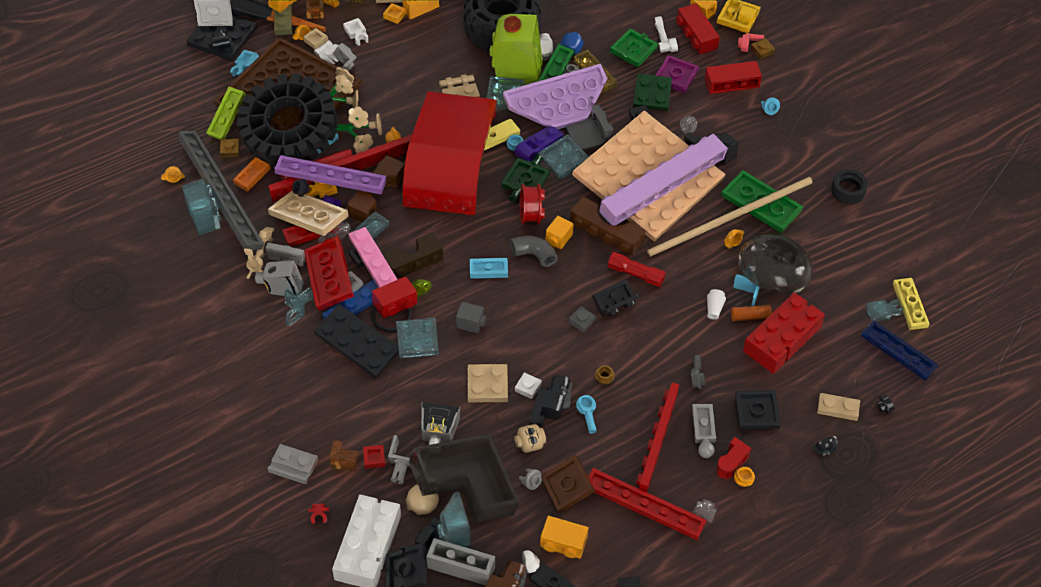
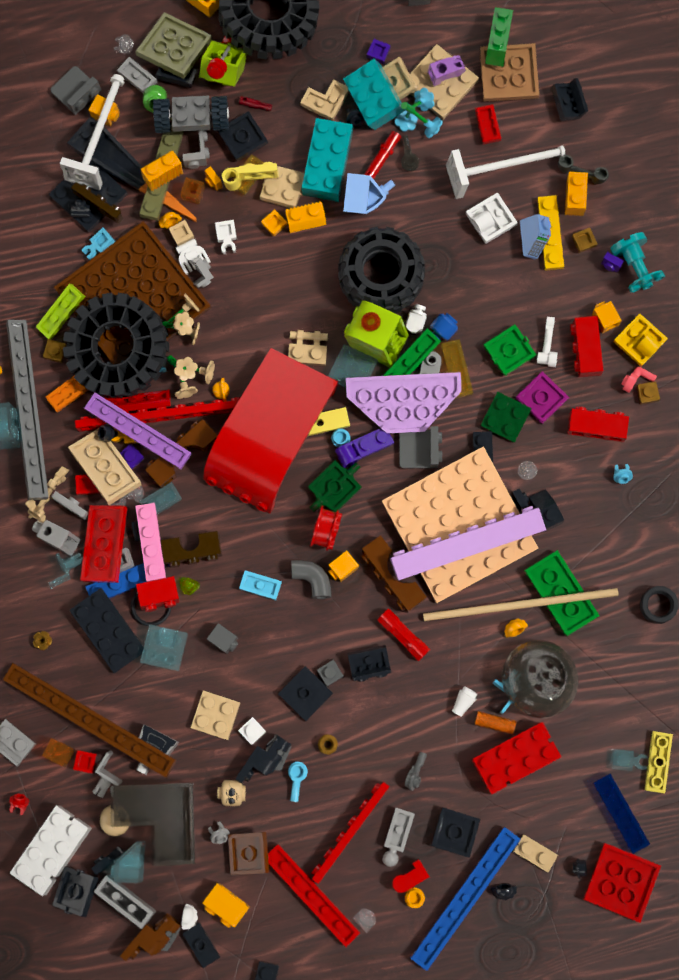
camera: 25 degrees right, 25 degrees up
(235, 30) = (97, 202): none -> dark brown plate
(294, 373) = (42, 645): none -> pearl gold plate
(367, 413) = (90, 720): none -> reddish brown plate
(563, 156) = (382, 473): clear light blue plate -> none
(566, 341) = (305, 693): none -> black plate
(792, 463) = (465, 898): none -> blue plate
(929, 404) = (622, 882): none -> red plate

